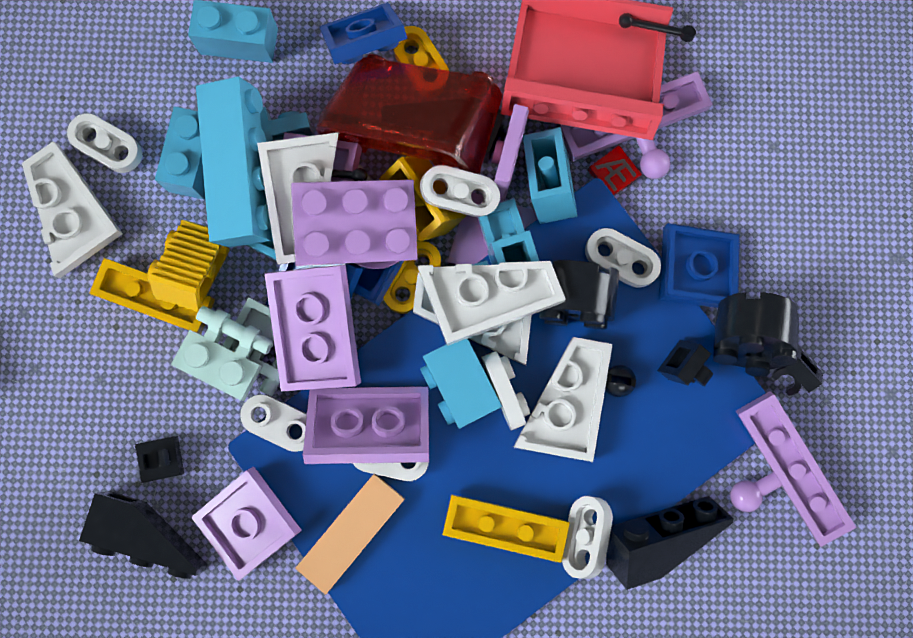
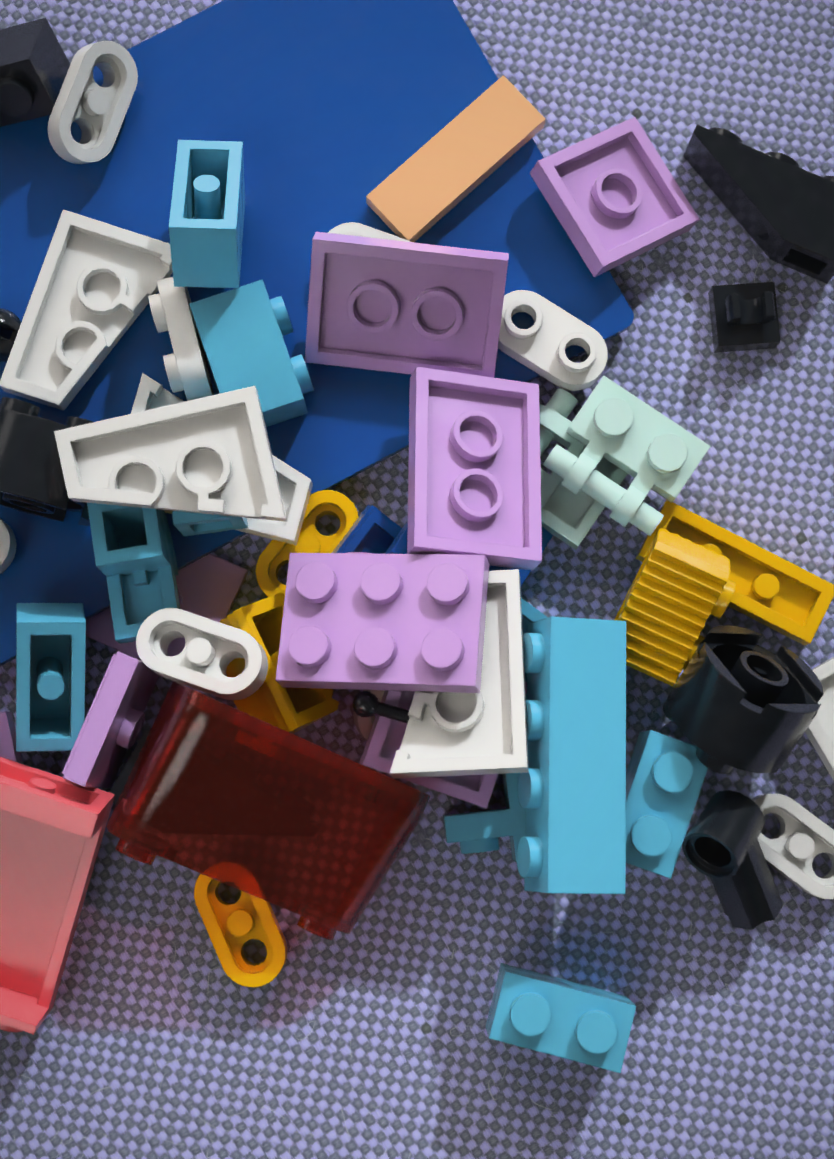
camera: 170 degrees left, 0 degrees up
(137, 210) = (743, 701): none -> black brick
(142, 127) = (728, 851): none -> black piece
(363, 33) = (332, 978): blue plate -> none
(498, 465) = (207, 214): none -> medium azure brick
(506, 528) = (165, 112): yellow plate -> none

